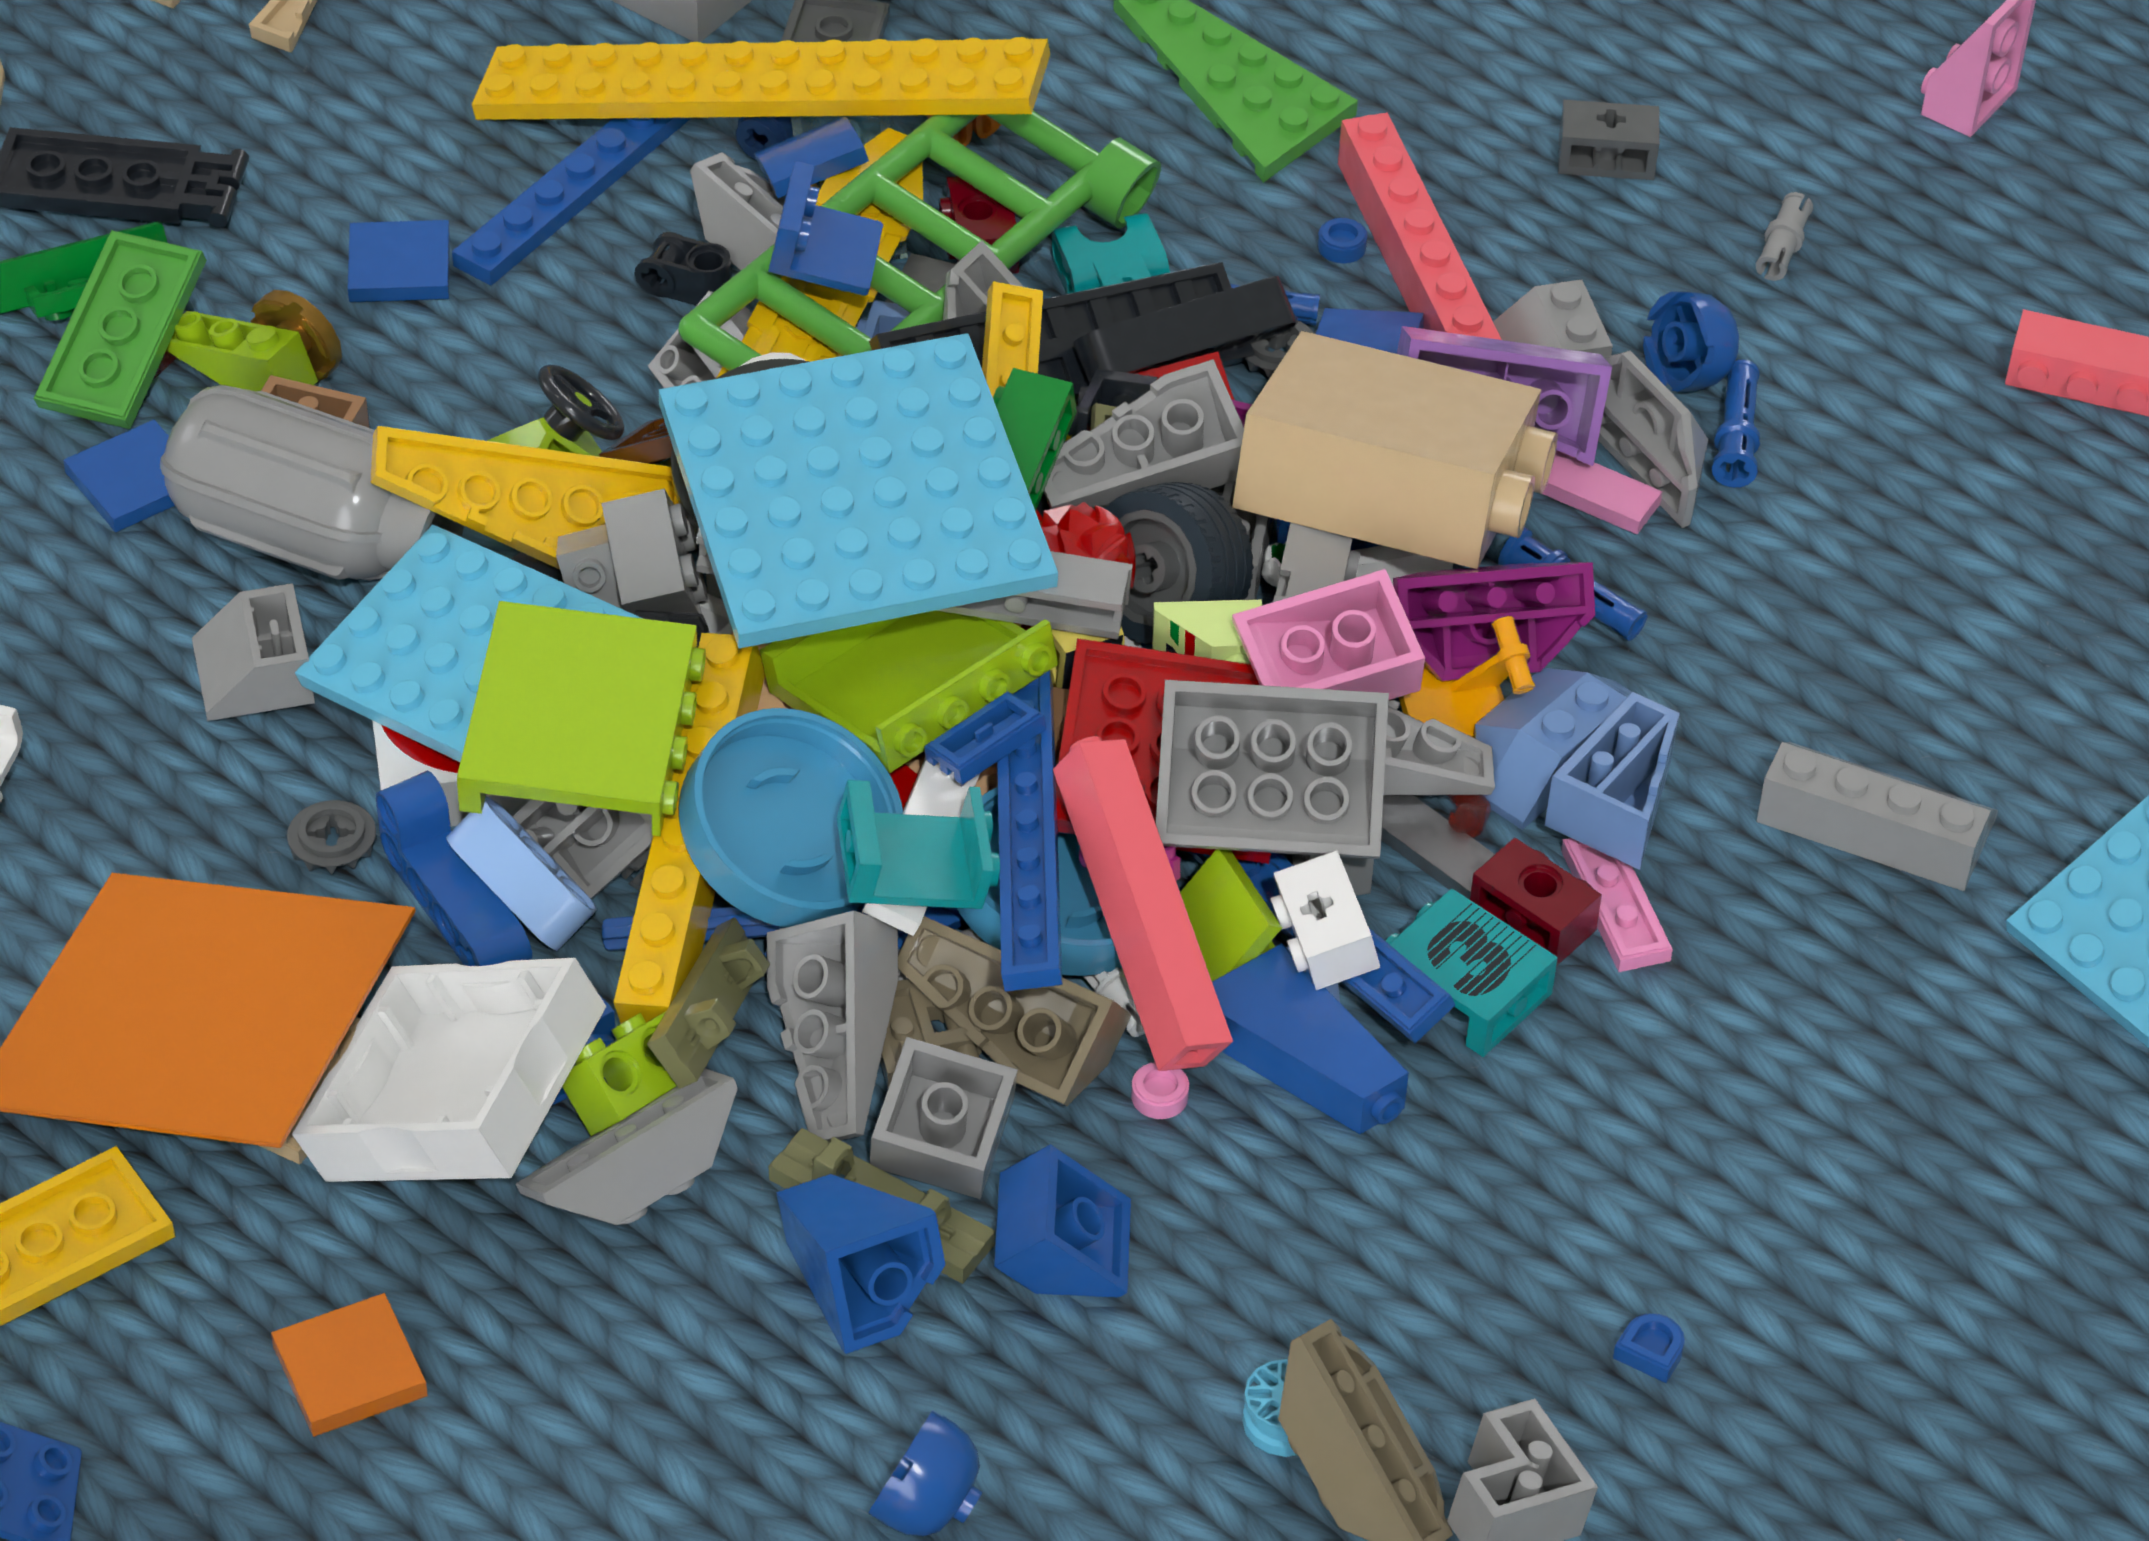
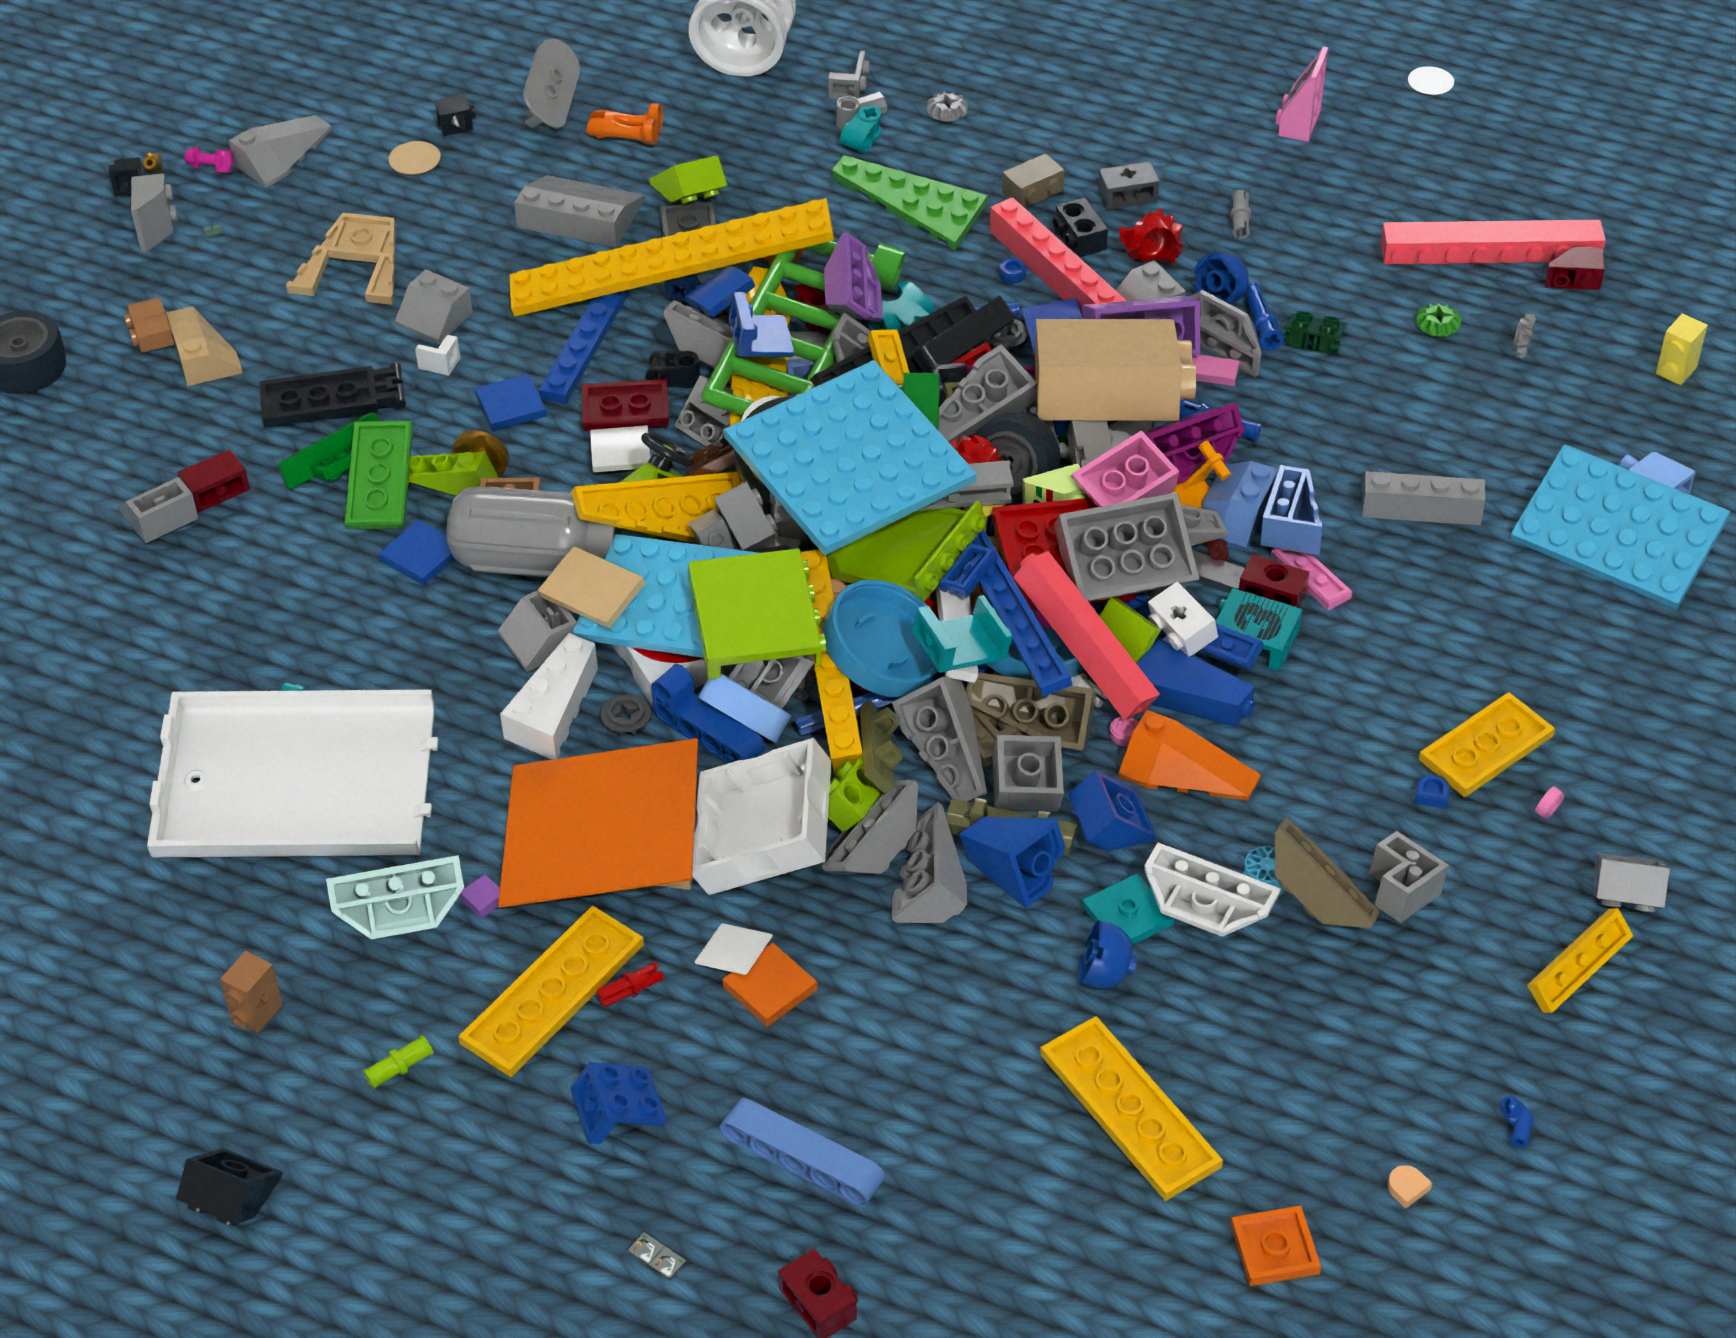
camera: 15 degrees left, 0 degrees up
(115, 1299) = (630, 984): none -> red axle
(221, 773) = (551, 698): none -> white wedge
(316, 1286) = (733, 949): none -> white sticker
(321, 159) = (441, 359): none -> white panel
(347, 71) = (434, 306): none -> light grey slope
(349, 604) = (591, 587): none -> tan tile
(511, 379) = (618, 448): none -> white slope
(580, 311) = (625, 404): none -> dark red plate
(705, 1252) = (933, 875): none -> light grey wedge
(1015, 1409) = (1129, 906): none -> teal plate
(1033, 193) = (852, 281): none -> medium lavender wedge
(1149, 1414) = (1206, 892): none -> white wedge
(1219, 1159) = (1176, 757): none -> orange wedge
(1446, 94) = (1033, 180): none -> dark tan brick
(1489, 193) = (1080, 227): none -> black brick
(1603, 241) = (1153, 238): none -> red hair
(1786, 1287) = (1486, 744): none -> yellow plate
(1832, 472) = (1304, 322): none -> dark green hinge
(1850, 1424) = (1549, 802): none -> bright pink tile
(2068, 520) = (1428, 321): none -> bright green gear

